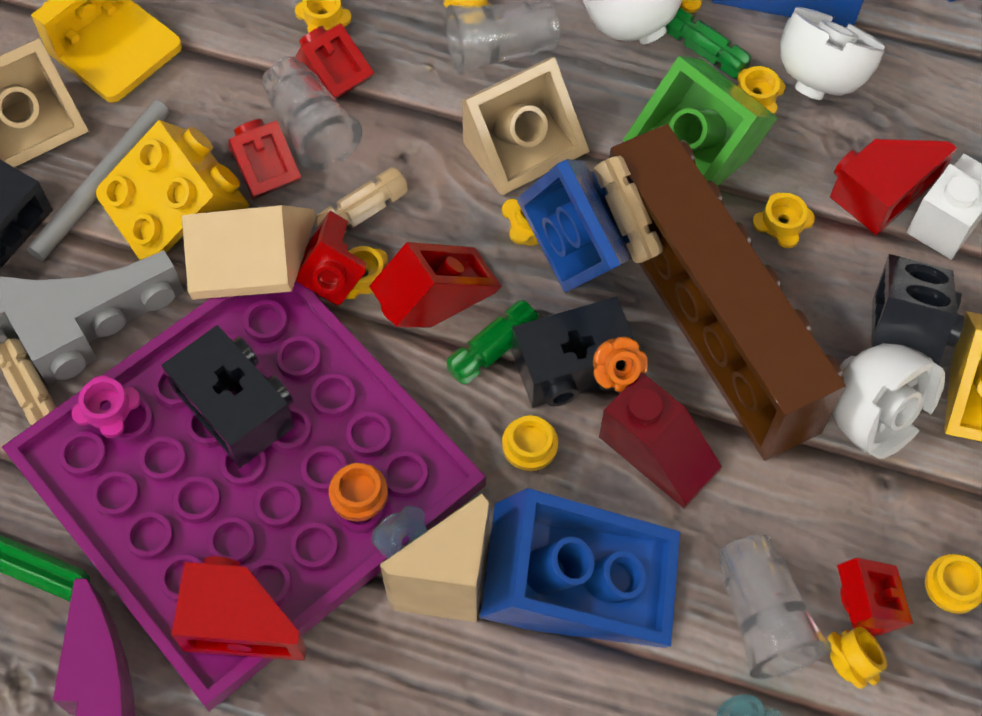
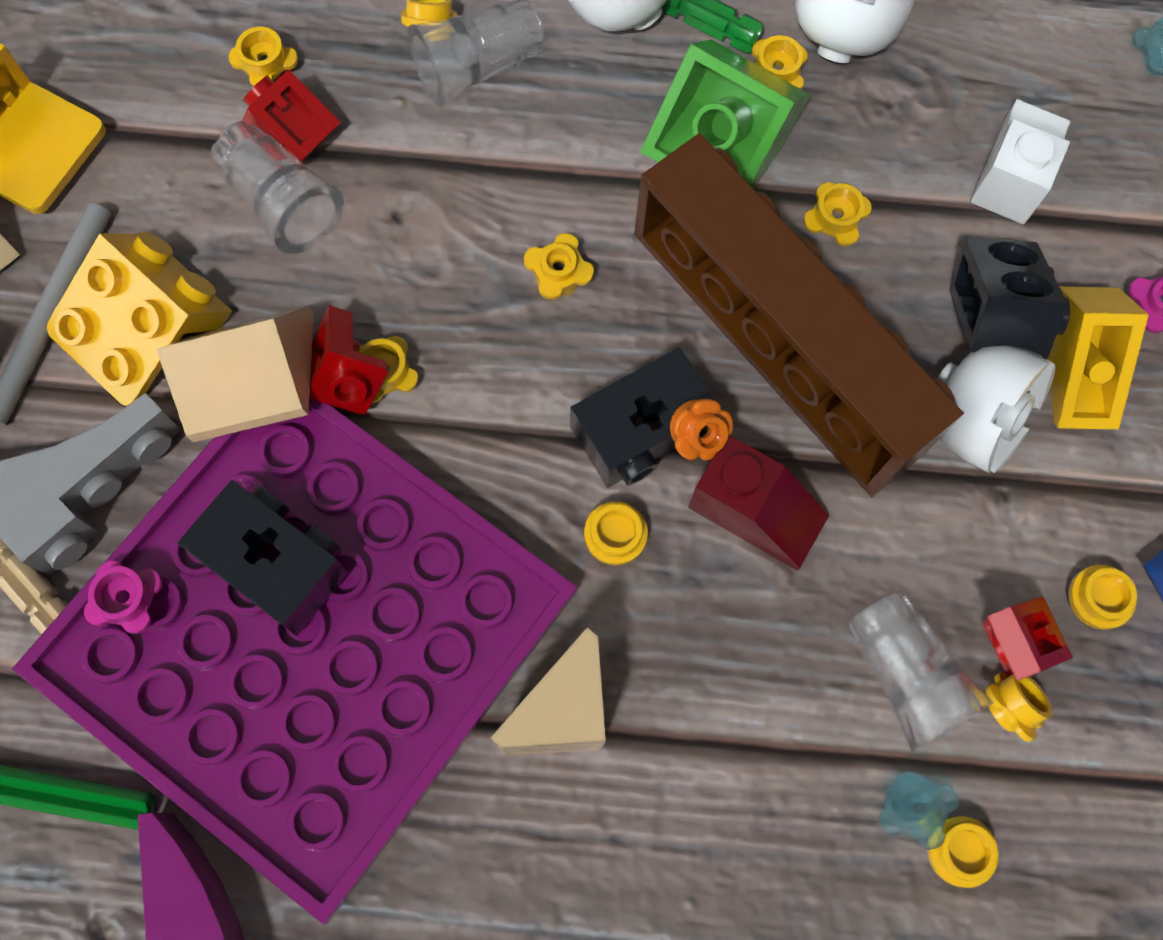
camera: 15 degrees left, 10 degrees up
(230, 613) = (328, 816): red slope -> none
(263, 157) = (234, 250): red bracket -> none
(358, 492) = (440, 639): orange plate -> none
(368, 198) = (367, 278): tan axle -> none
(395, 527) = (493, 677): clear light blue plate -> none
(432, 283) = (465, 368): red slope -> none
(489, 343) = (547, 422): green axle -> none
(522, 126) = (527, 158): tan slope -> none
(574, 224) = (619, 274): blue slope -> none
(580, 571) = (703, 673): blue slope -> none
(628, 209) = (675, 244): tan axle -> none
(888, 178) = (941, 144): red slope -> none

